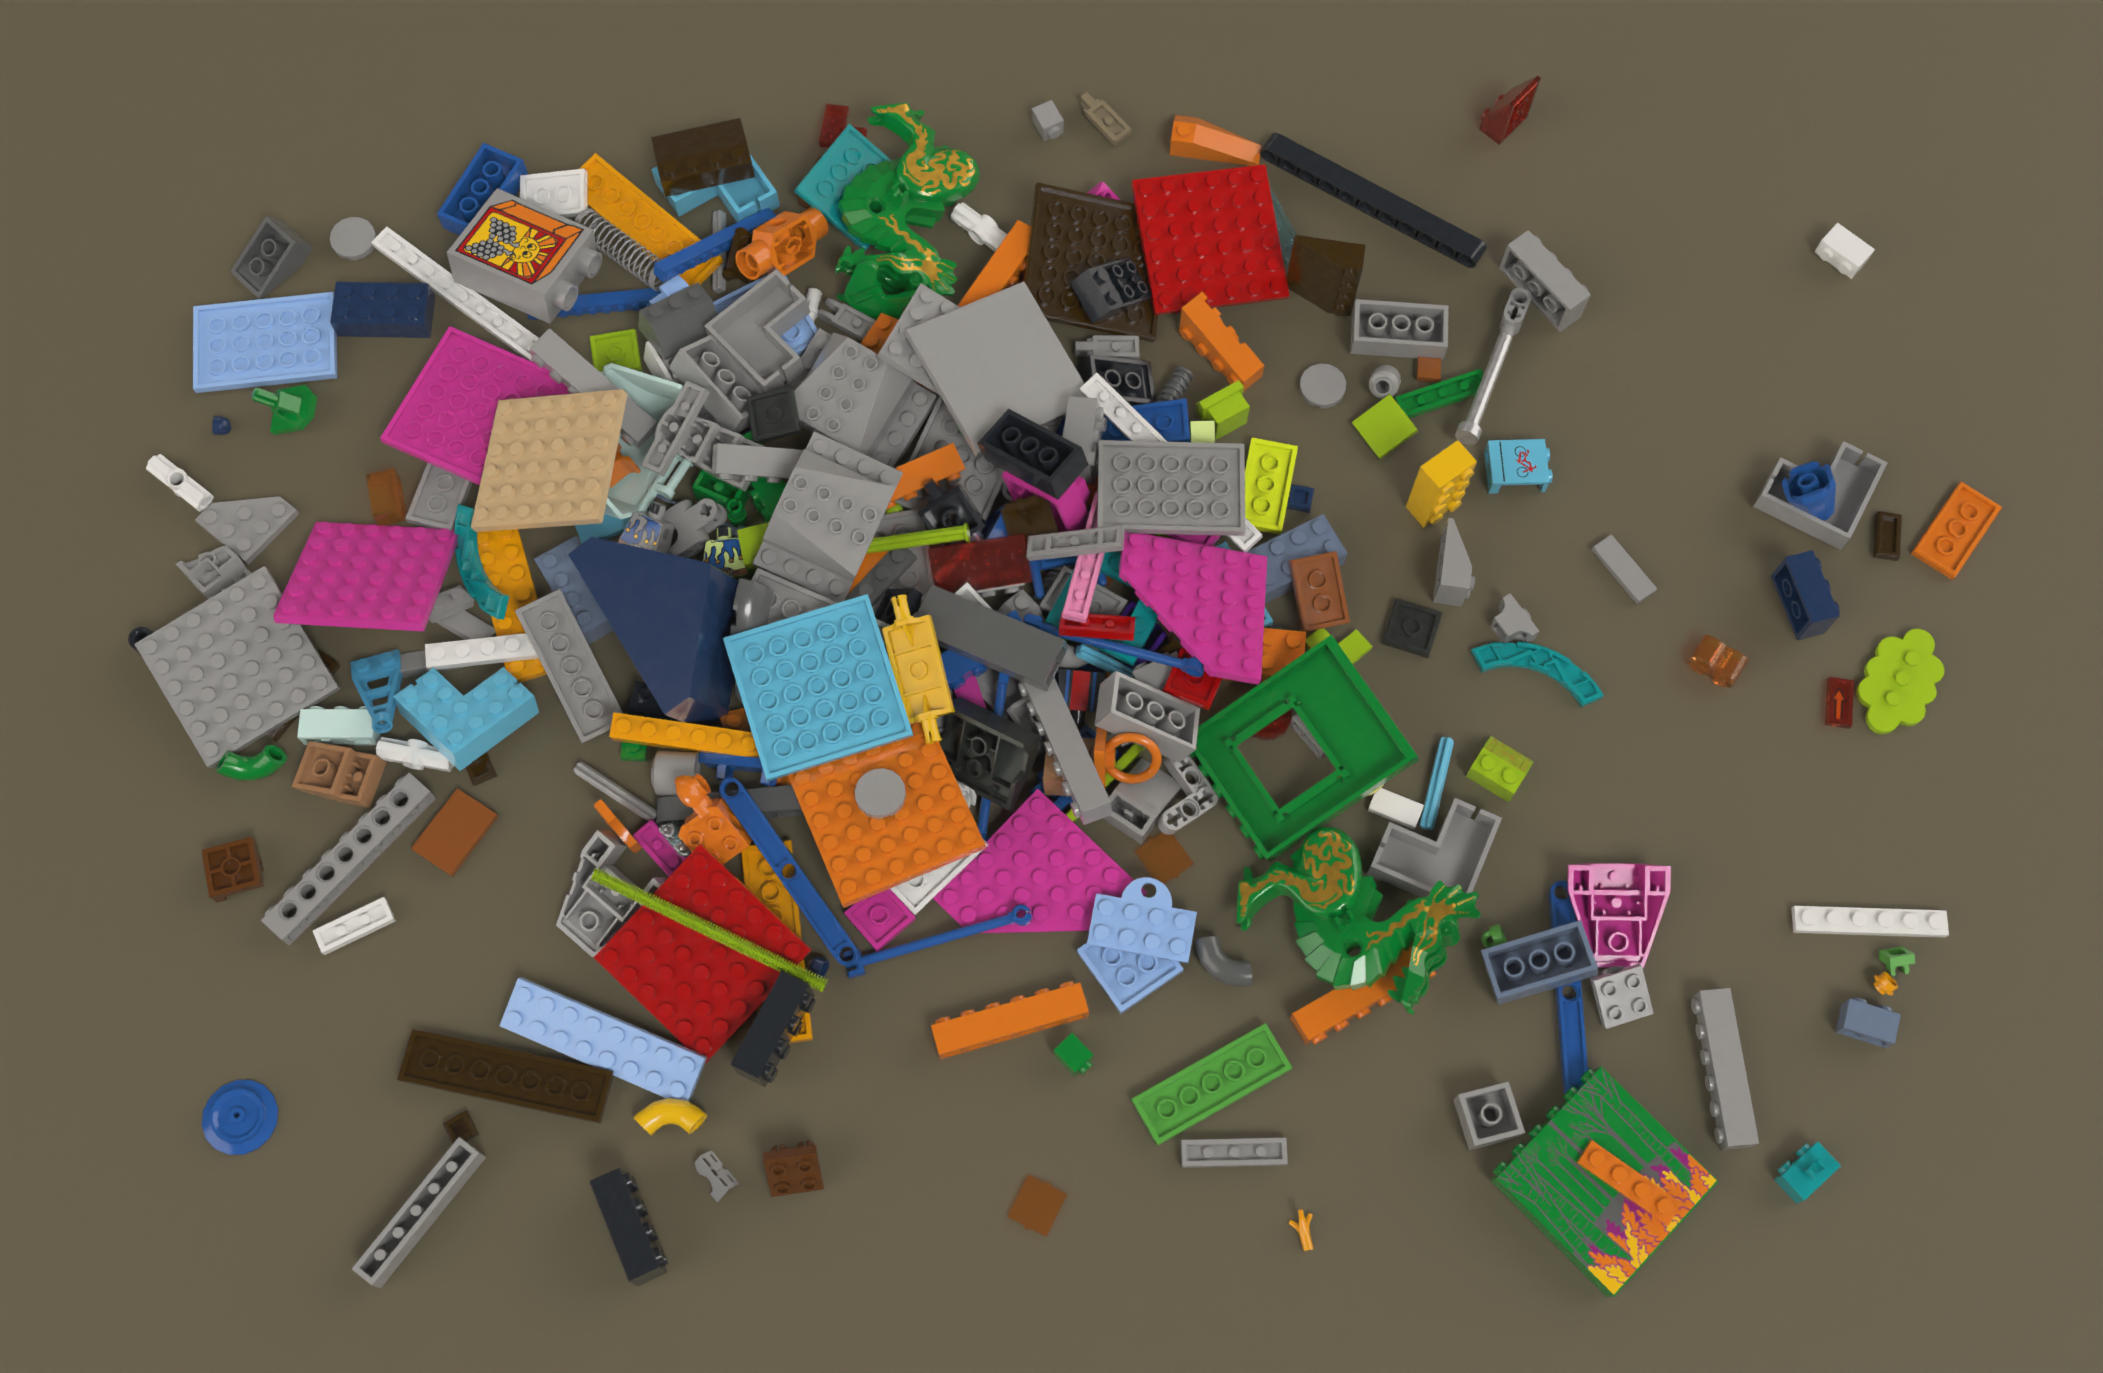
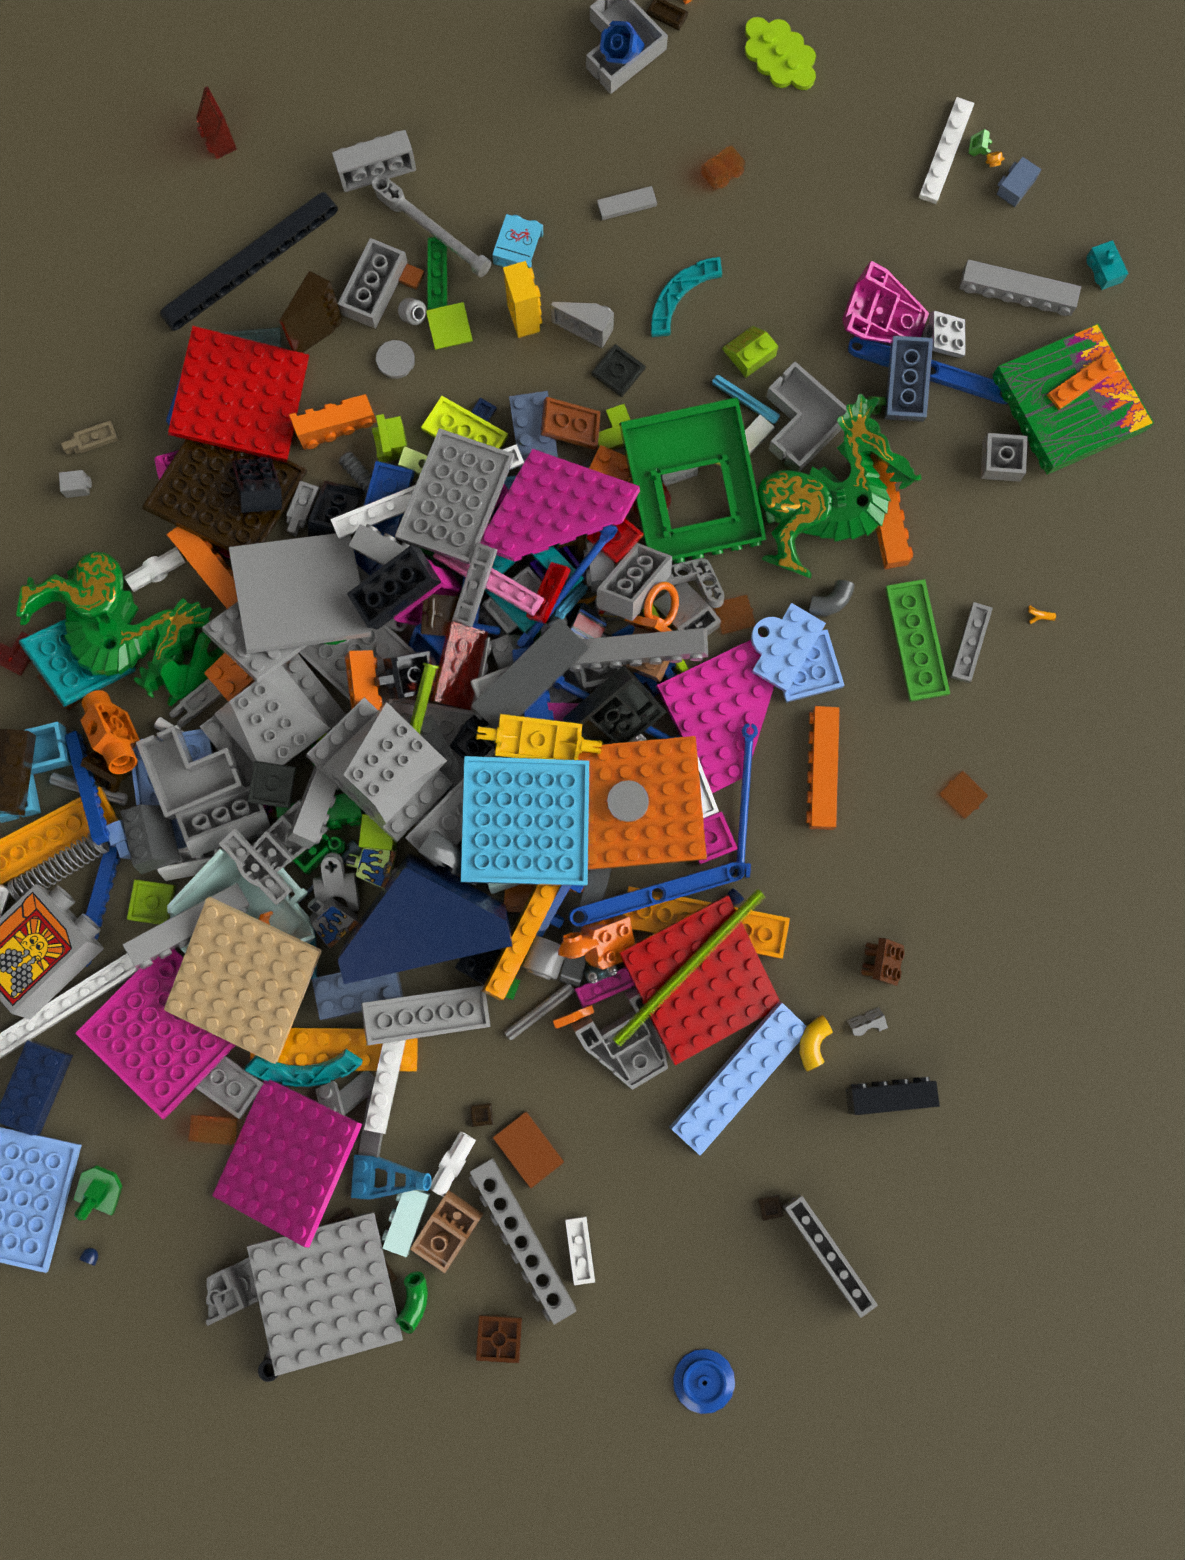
camera: 70 degrees left, 10 degrees up
(171, 475) = (121, 1311): white piece -> none
(247, 524) = (191, 1255): light grey plate -> none
(470, 723) = (445, 1114): medium azure piece -> none
(506, 1076) = (741, 1161): dark brown plate -> none
(773, 1029) = (781, 943): black brick -> none
(1074, 1055) = (865, 730): green brick -> none
(1206, 141) = (145, 365): orange wedge -> none
(1513, 622) = (641, 296): light grey brick -> none
(1805, 595) = (697, 85): dark blue brick -> none
(1839, 702) = (781, 100): clear red tile -> none

